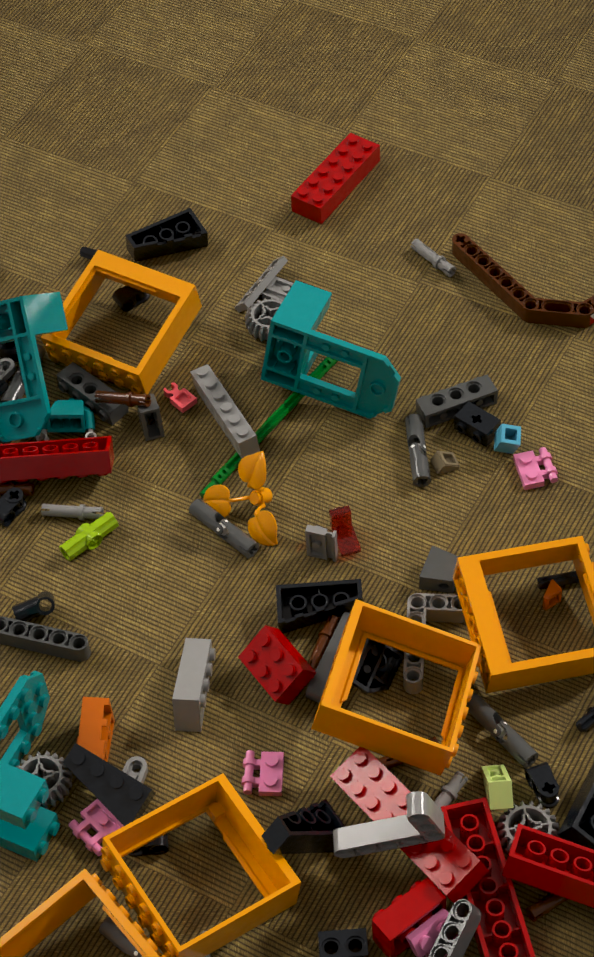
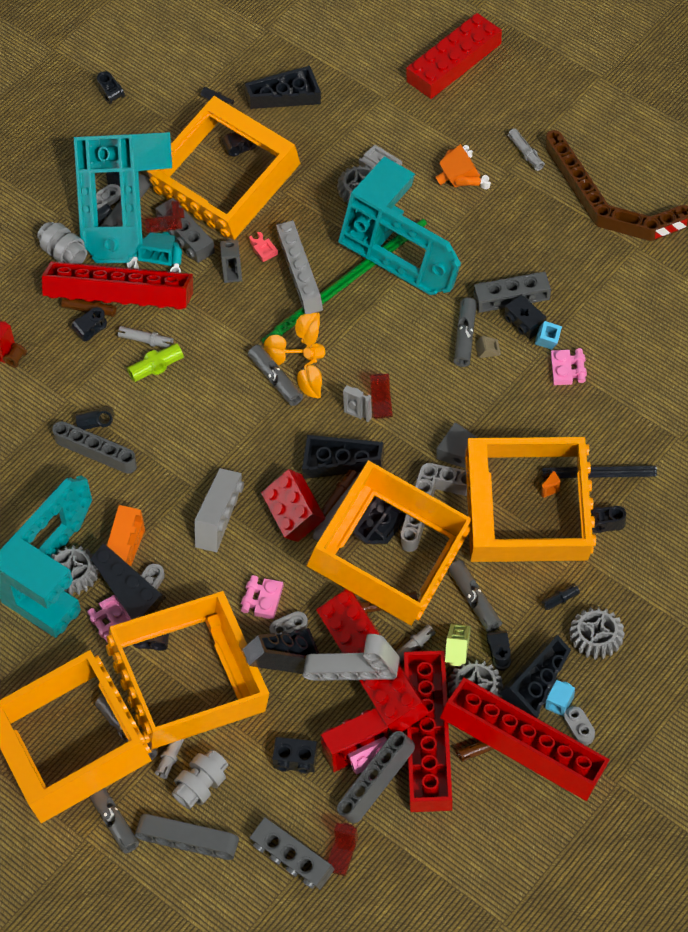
camera: 10 degrees right, 5 degrees up
(71, 387) = (167, 222): none -> clear red bracket
(130, 399) = (215, 242): reddish brown pin -> none
(262, 282) = (360, 150): light grey tile -> none
(299, 798) = (288, 623): none -> light grey plate
(371, 287) = (460, 169): none -> orange torso

